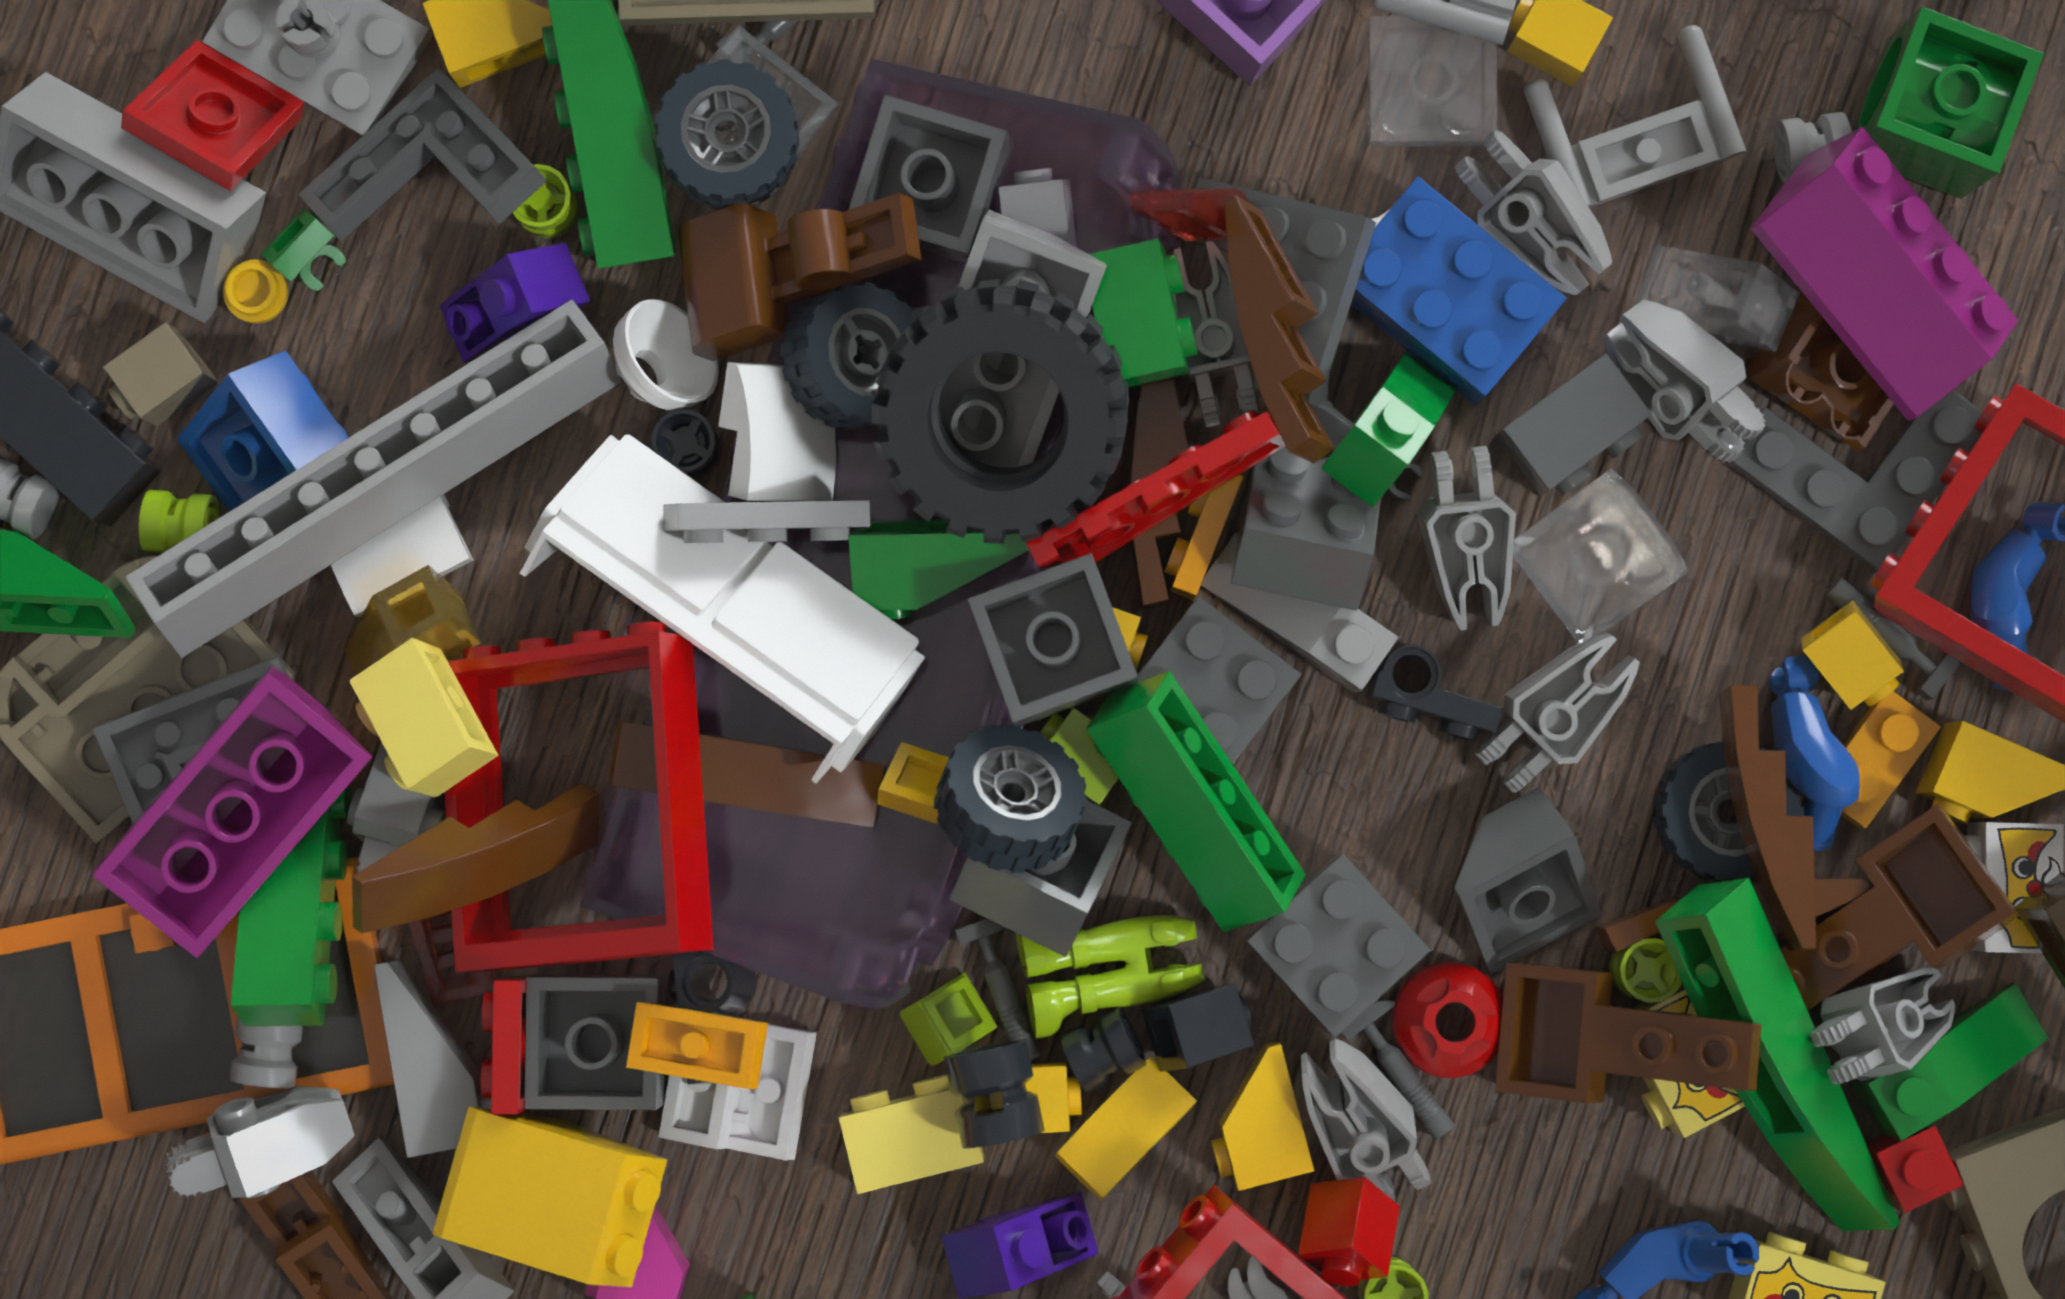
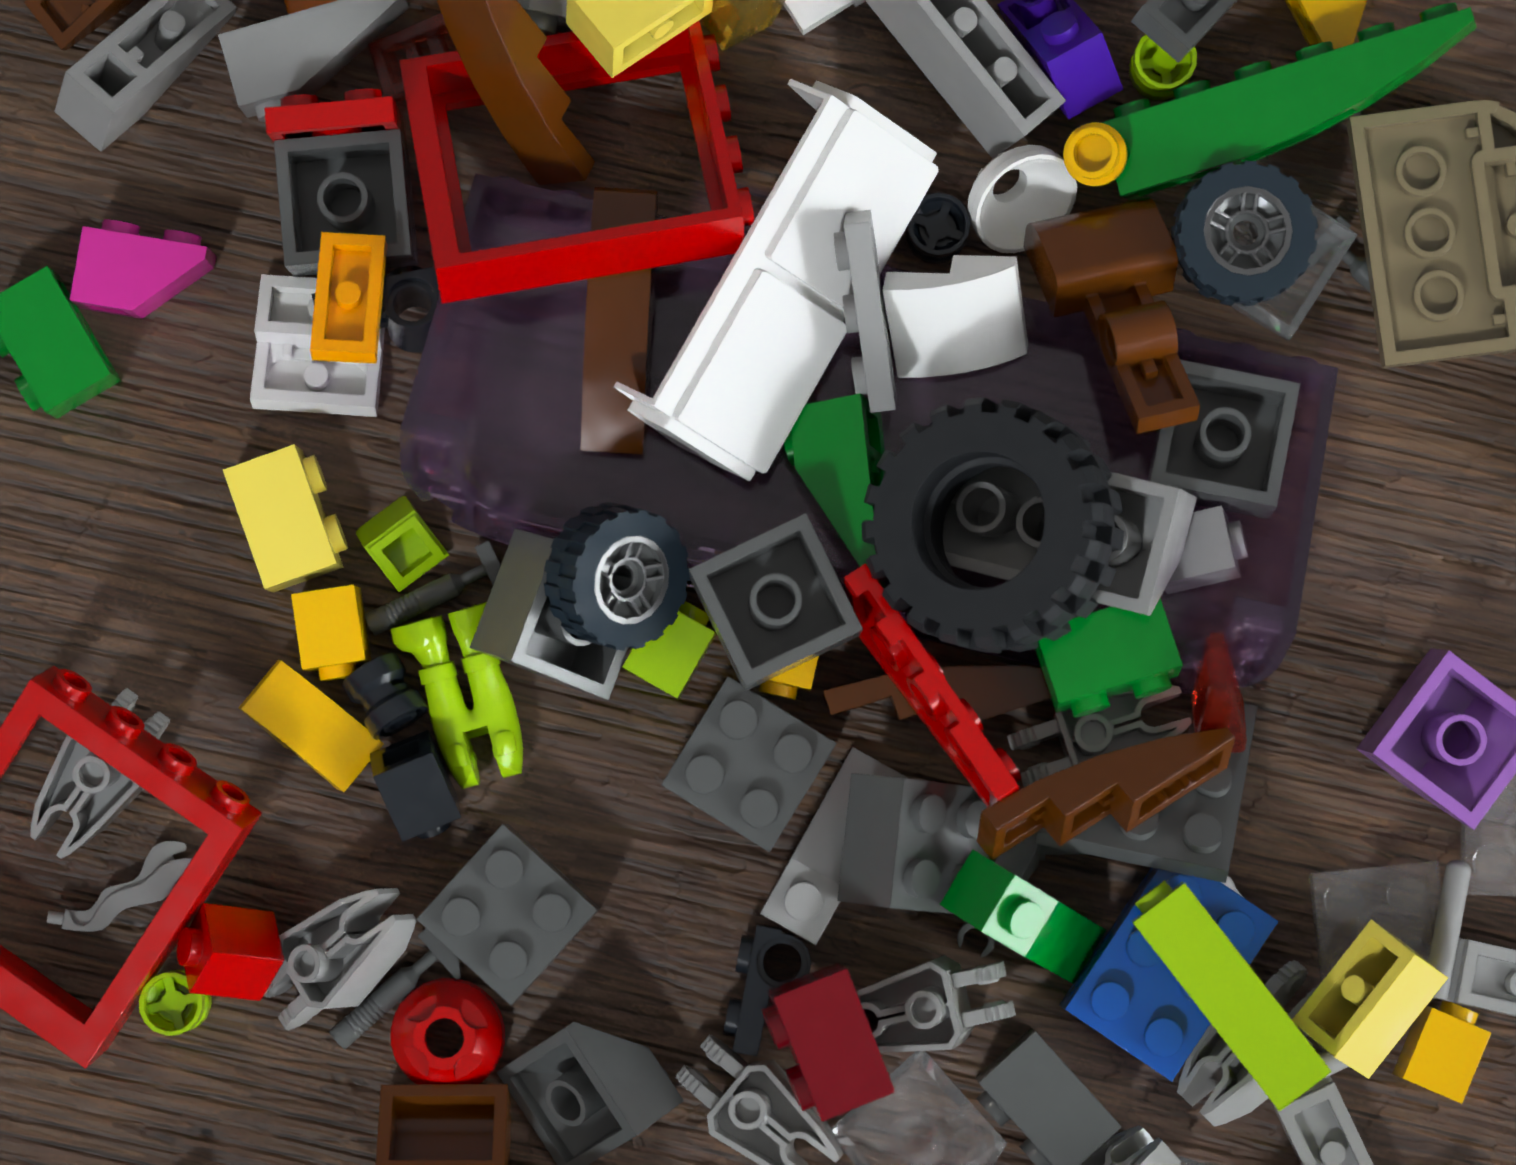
camera: 90 degrees right, 0 degrees up
(550, 1196) = (192, 174): yellow slope -> none
(630, 275) = (1095, 154): none -> yellow plate
(822, 349) = (1048, 350): black wheel -> none
(912, 782) = (628, 481): yellow plate -> none
(987, 1071) = (352, 586): black wheel -> none
(1019, 1246) = (188, 634): dark purple slope -> none
(1191, 558) = (876, 735): light orange plate -> none
(1196, 802) = (633, 760): green brick -> none
(1262, 1126) = (324, 859): yellow slope -> none
(1489, 228) = (1229, 993): none -> lime brick
(1501, 629) = (829, 1042): none -> dark red brick
(1504, 94) = (1369, 999): none -> light yellow brick

